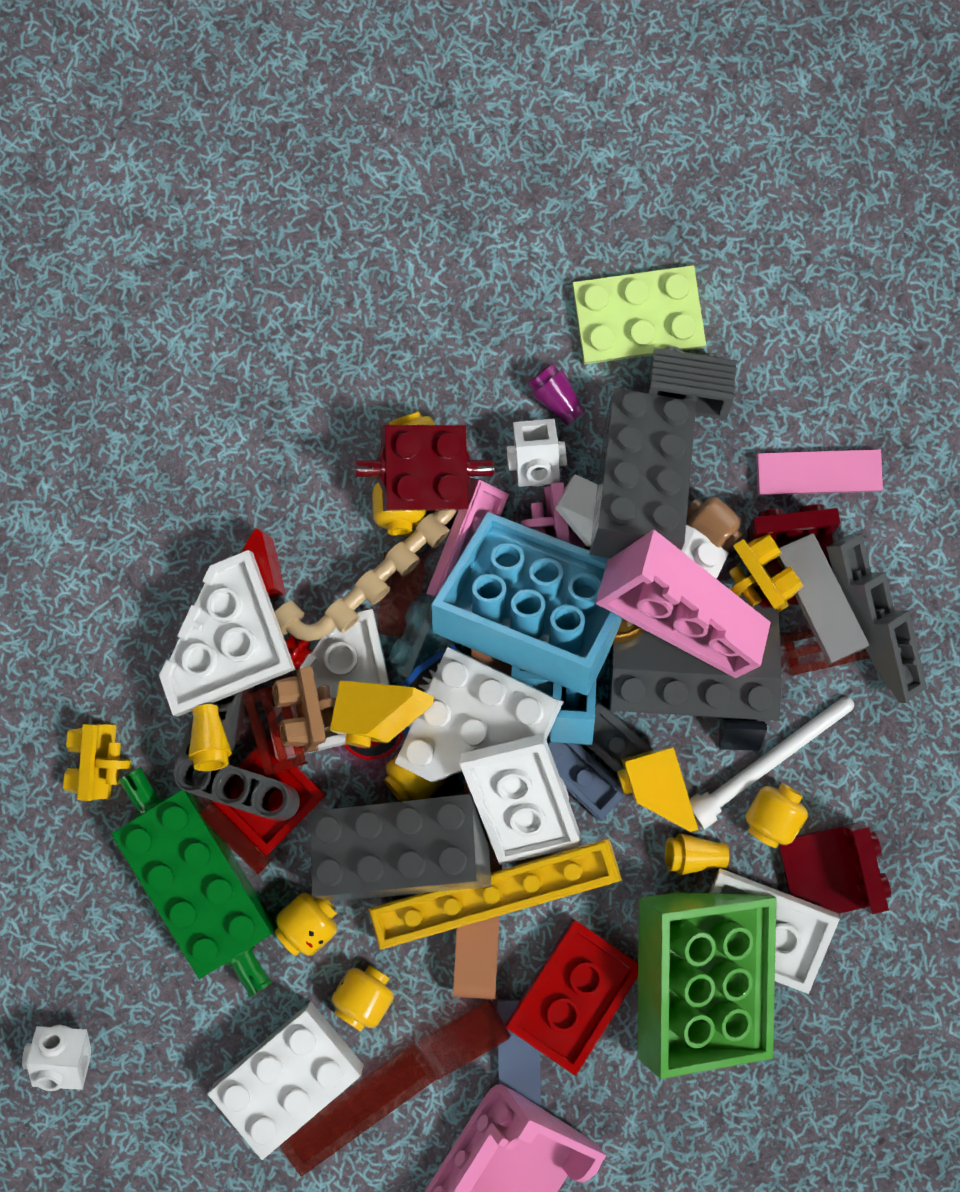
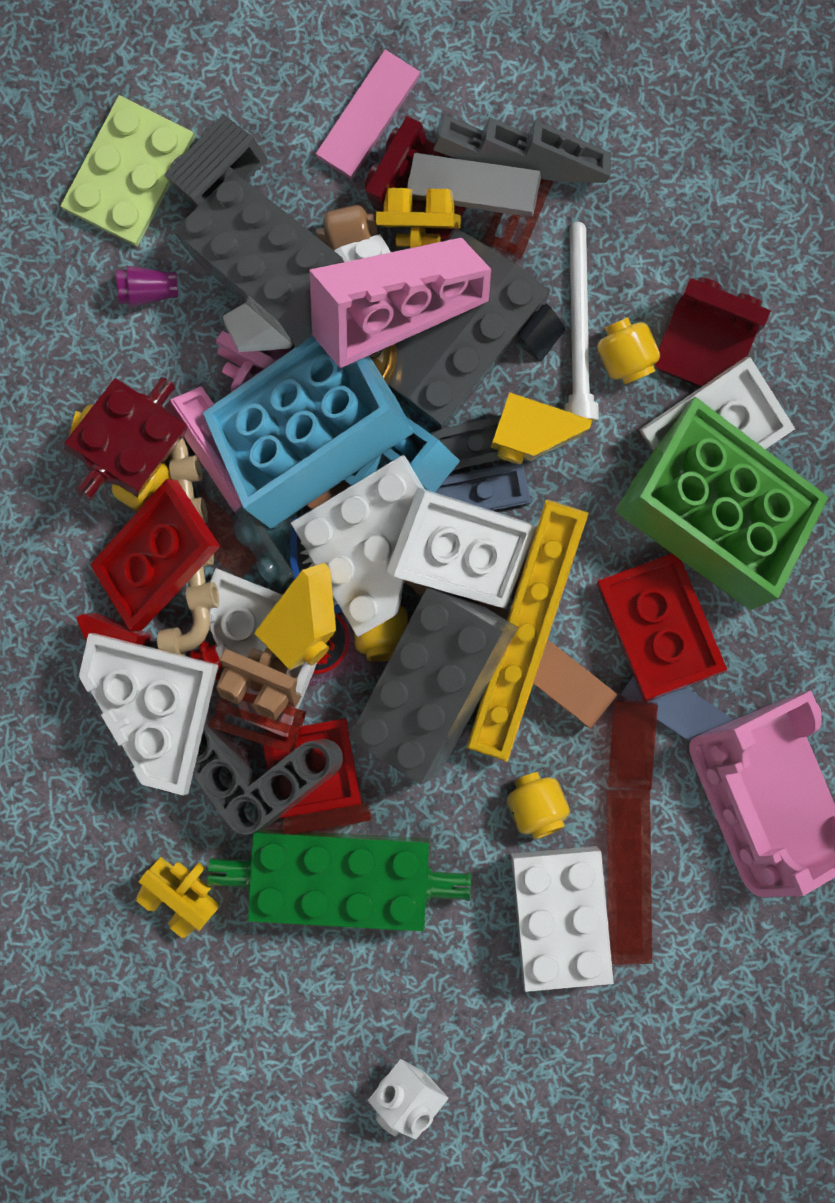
camera: 50 degrees left, 0 degrees up
(208, 740) = (226, 779): yellow cone -> none
(306, 924) = (442, 809): yellow head -> none
(347, 555) = (154, 555): none -> red plate
(536, 453) = (182, 336): white brick -> none
(692, 854) = (612, 444): yellow cone -> none

